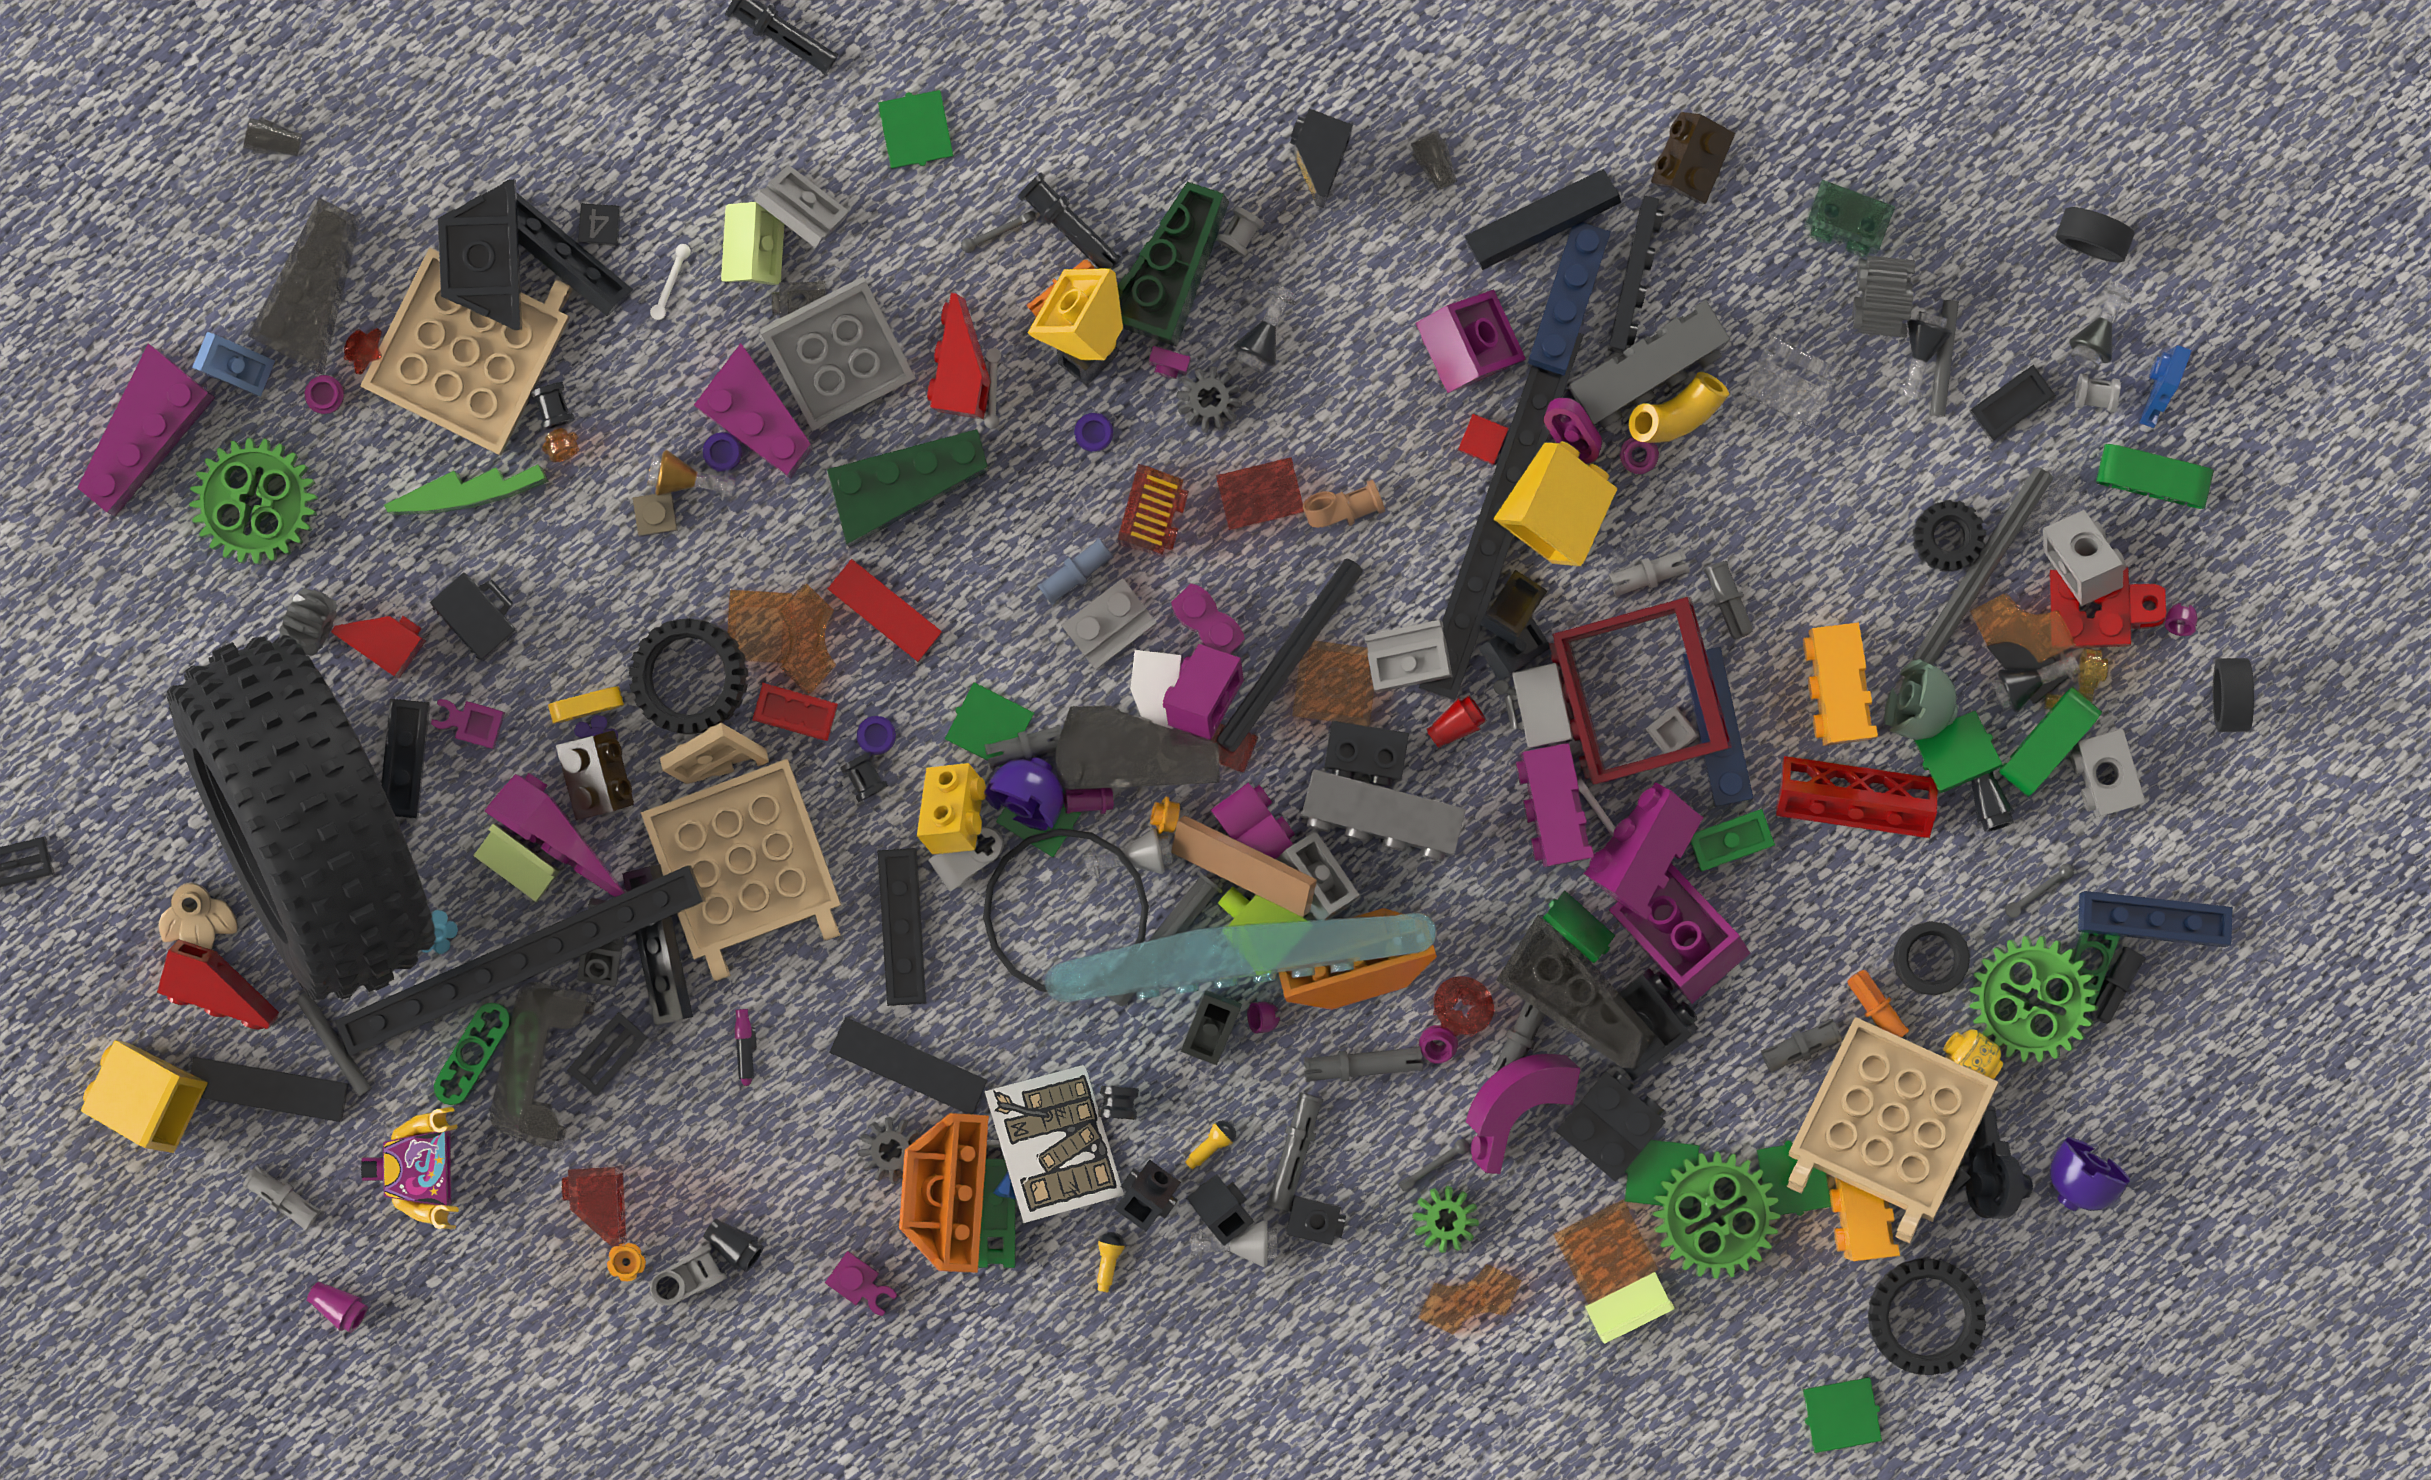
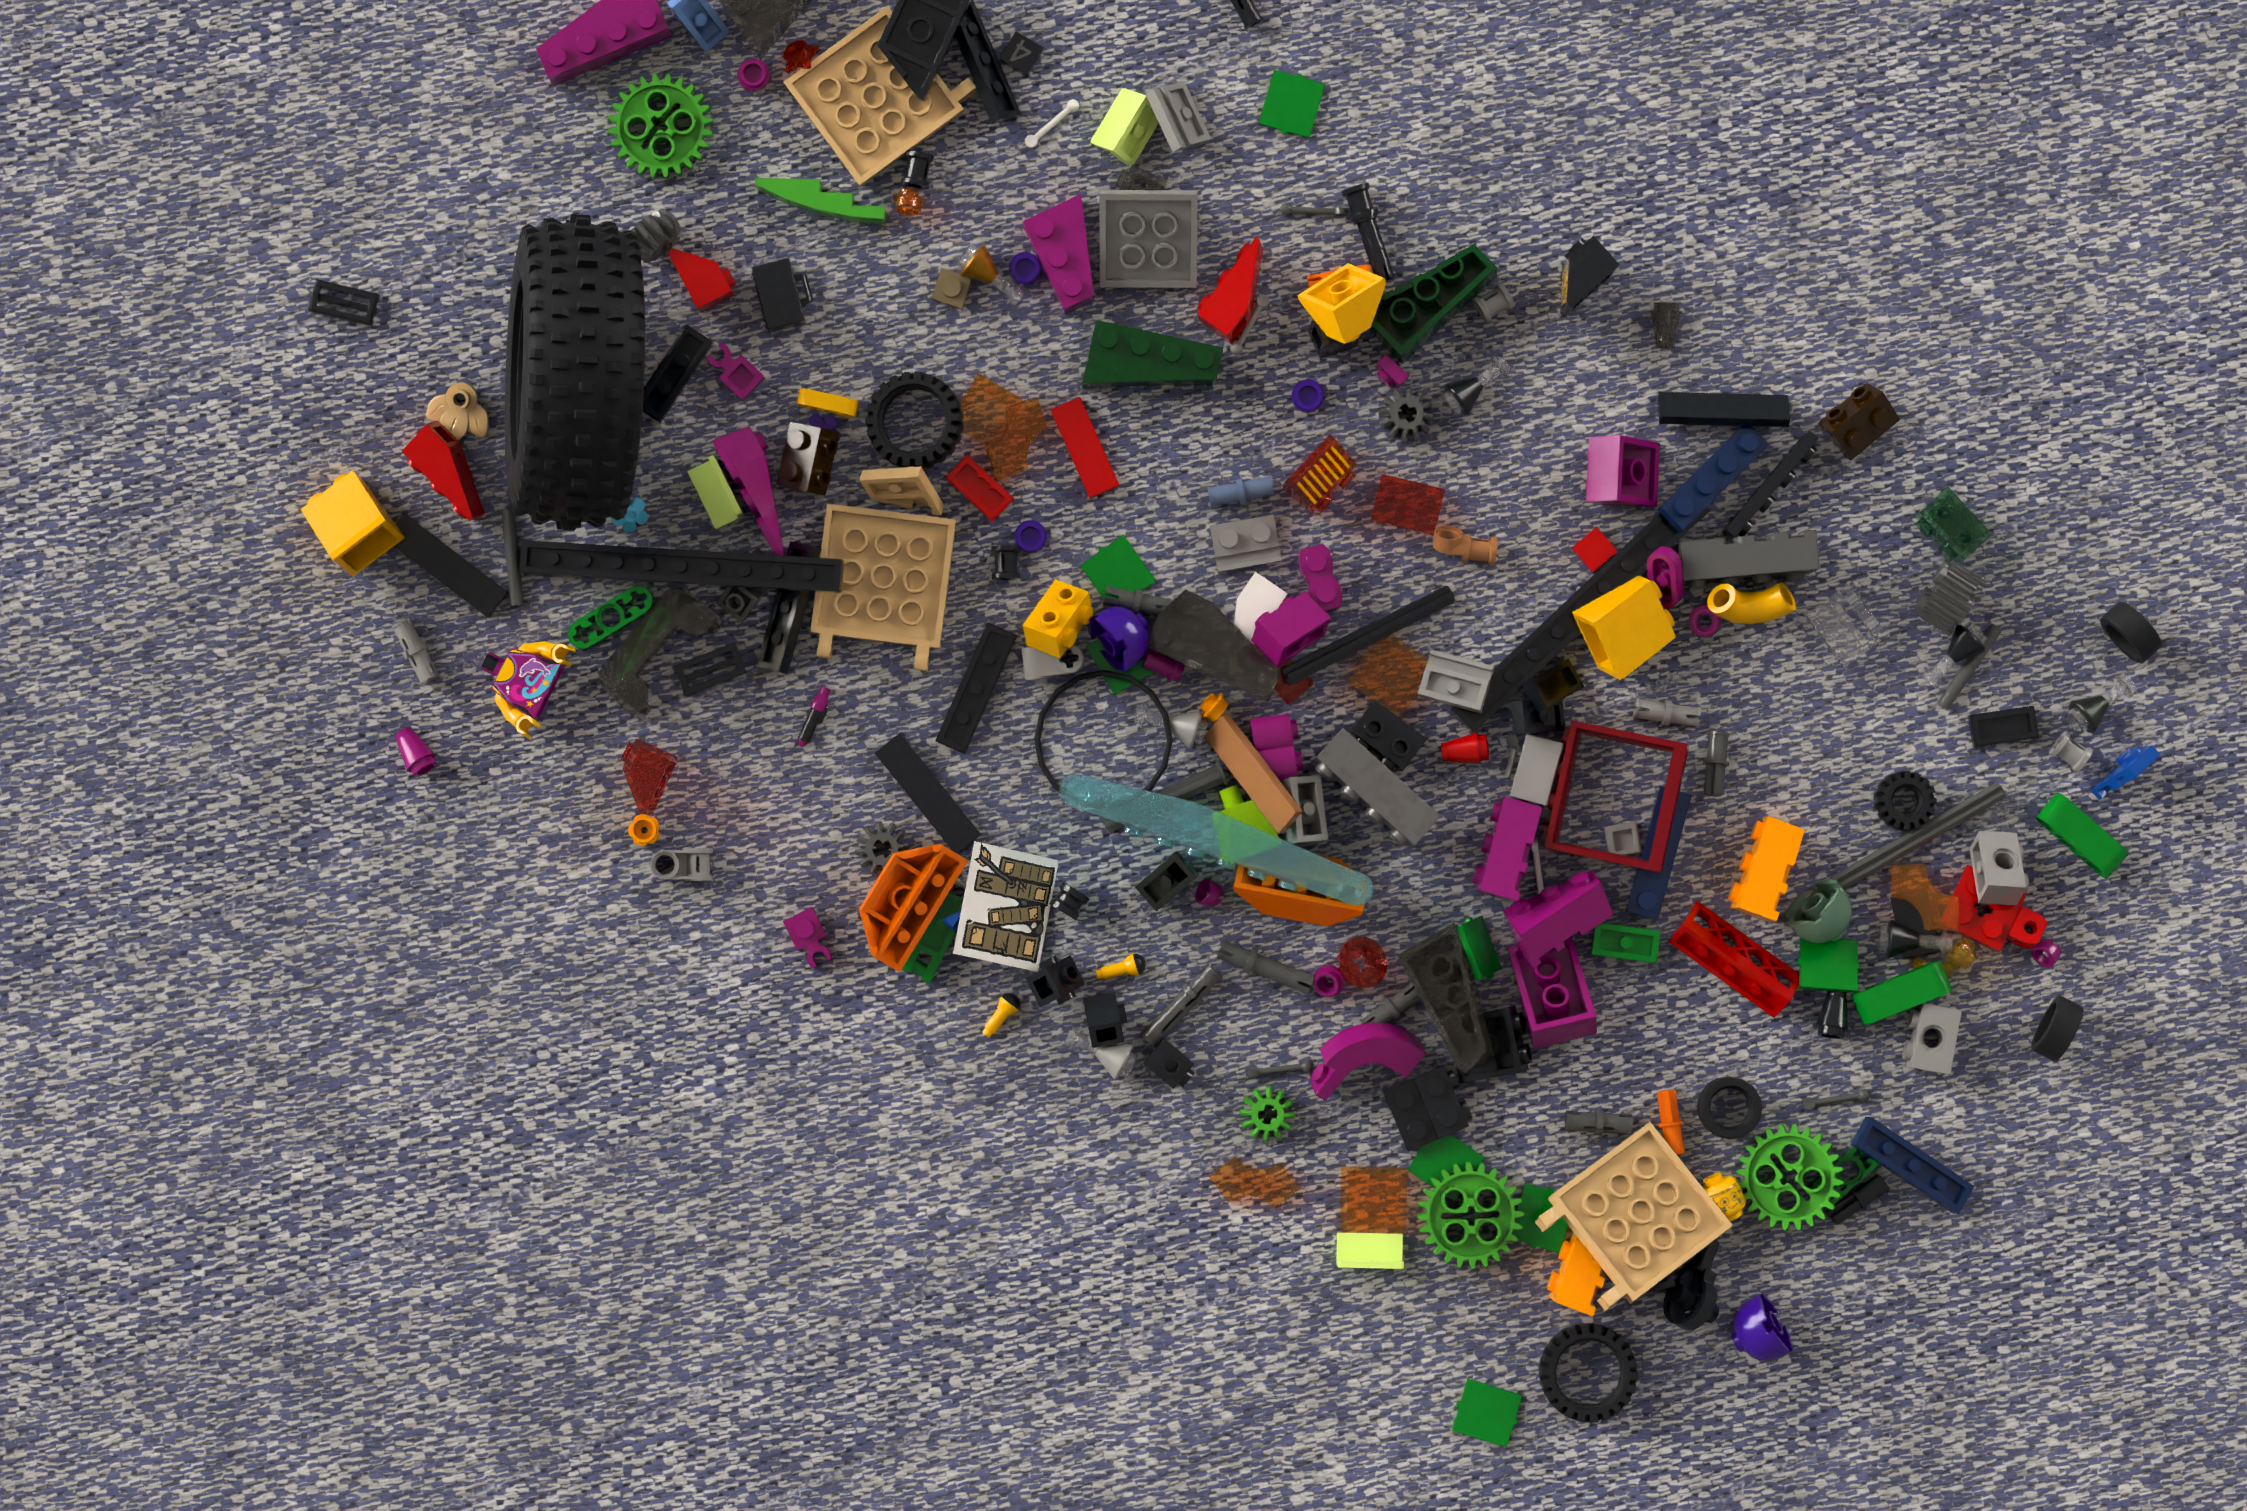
camera: 30 degrees right, 0 degrees up
(735, 1245) = (730, 858): black cone -> none

